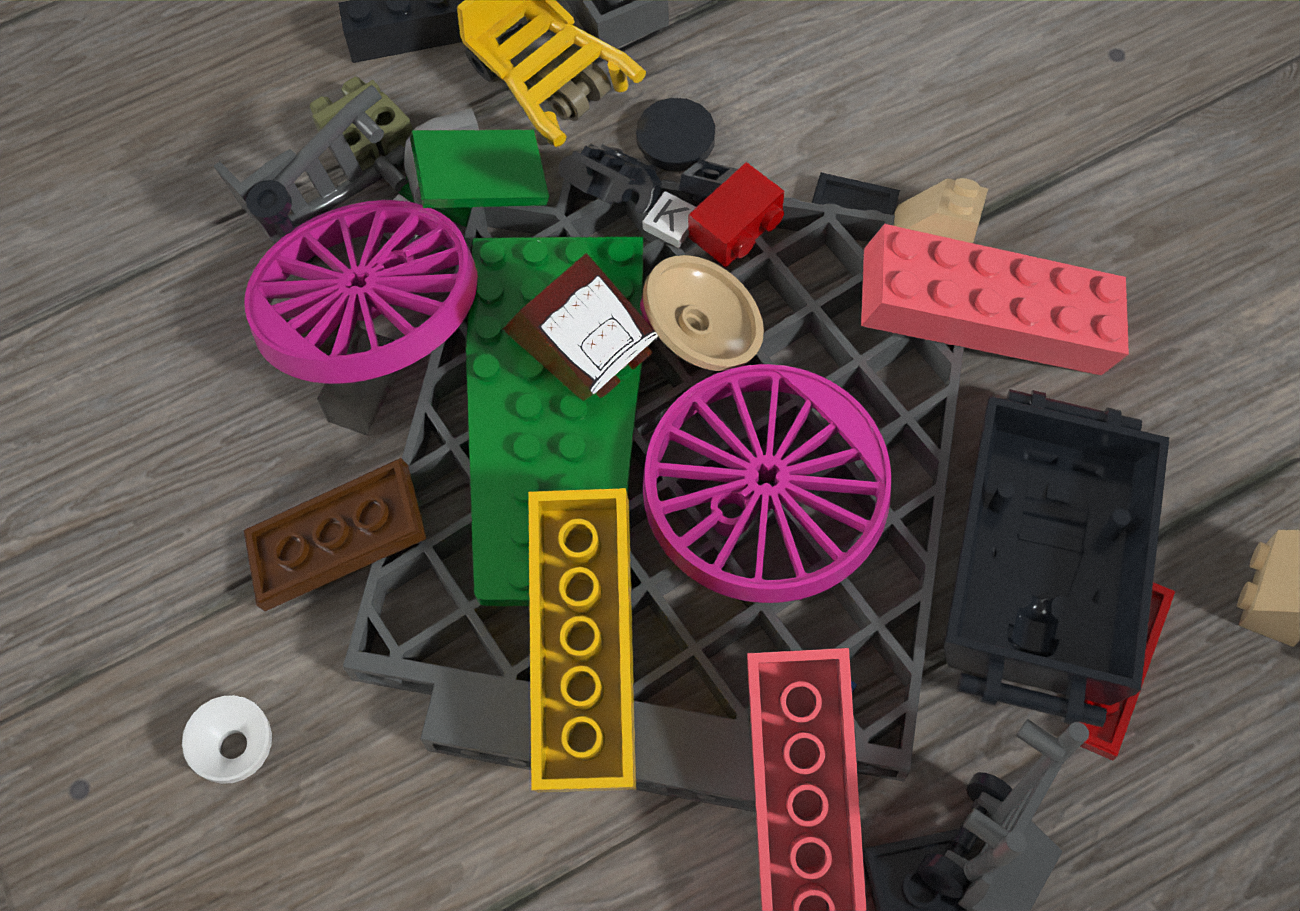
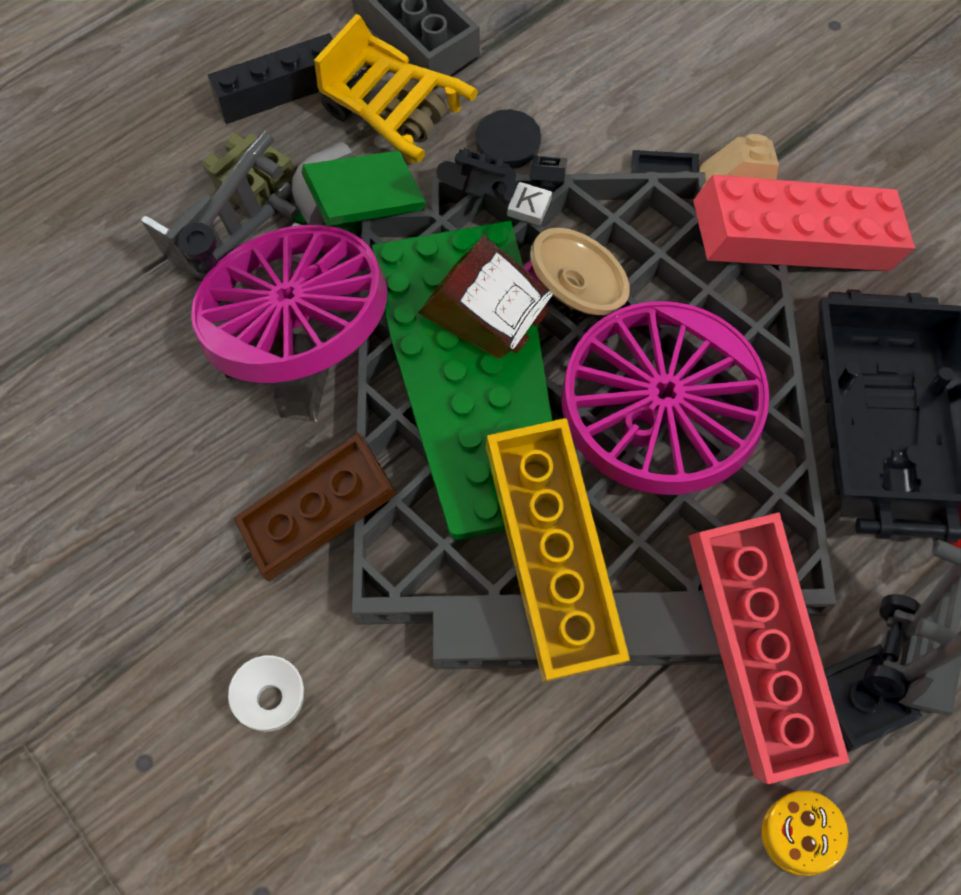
camera: 15 degrees left, 0 degrees up
(736, 215) = (582, 190): red brick -> none

